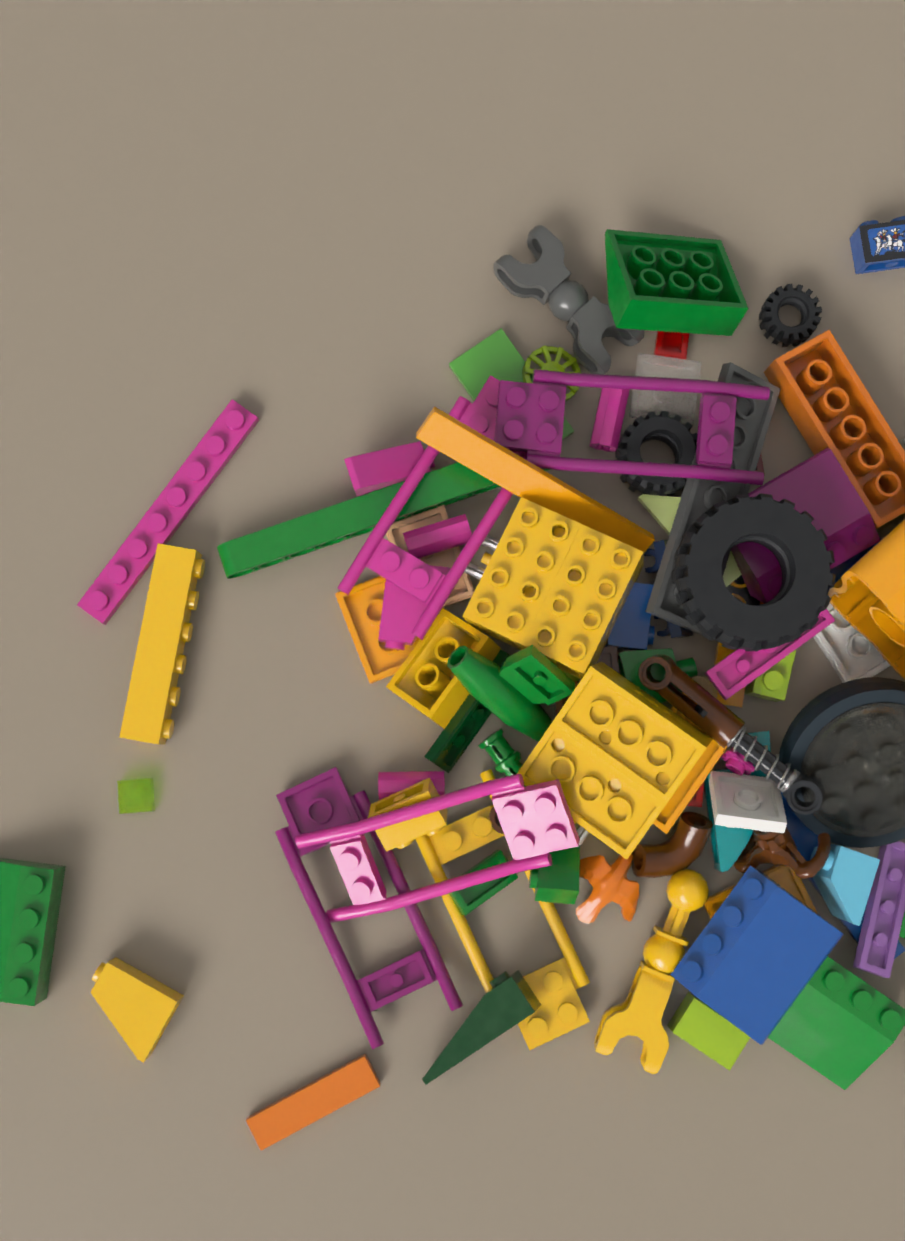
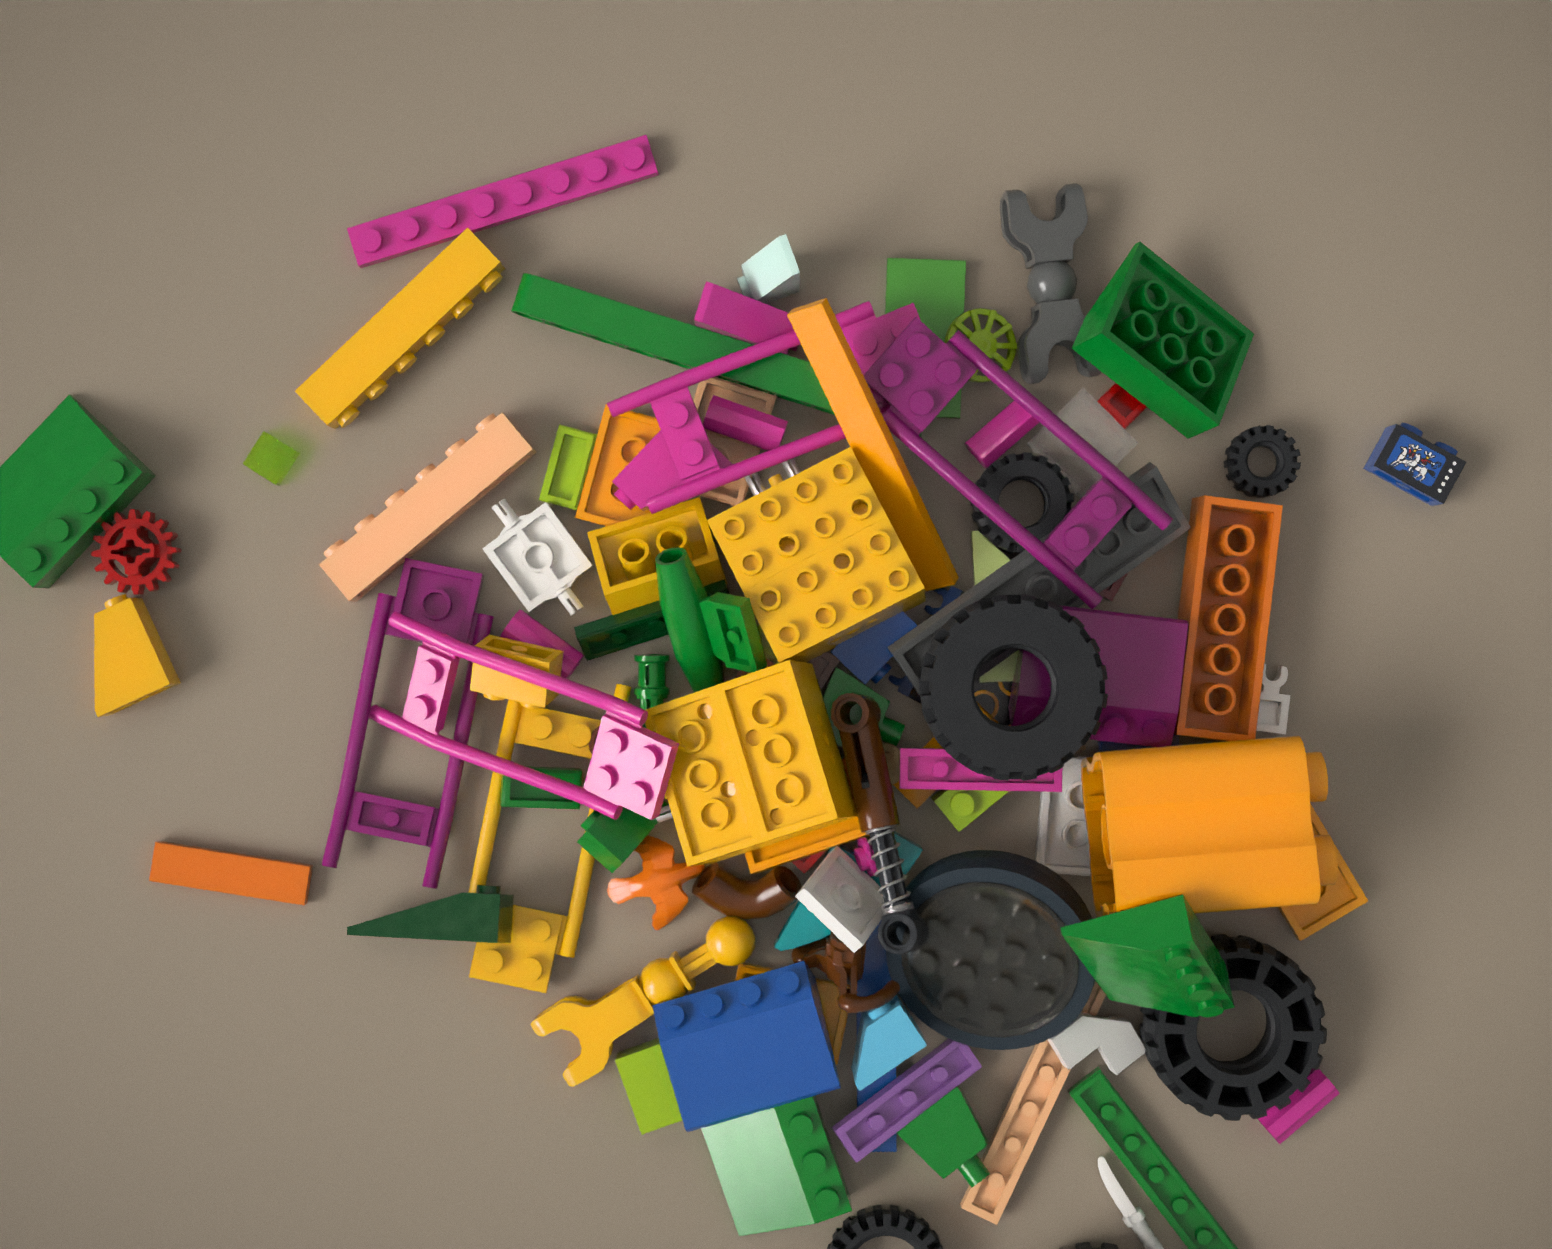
camera: 35 degrees right, 5 degrees up
(98, 937) = (136, 567): none -> red gear
(266, 750) = (427, 507): none -> light nougat brick
(340, 654) = (567, 467): none -> lime tile
(364, 728) = (537, 557): none -> white plate
(382, 422) = (771, 273): none -> light aqua slope

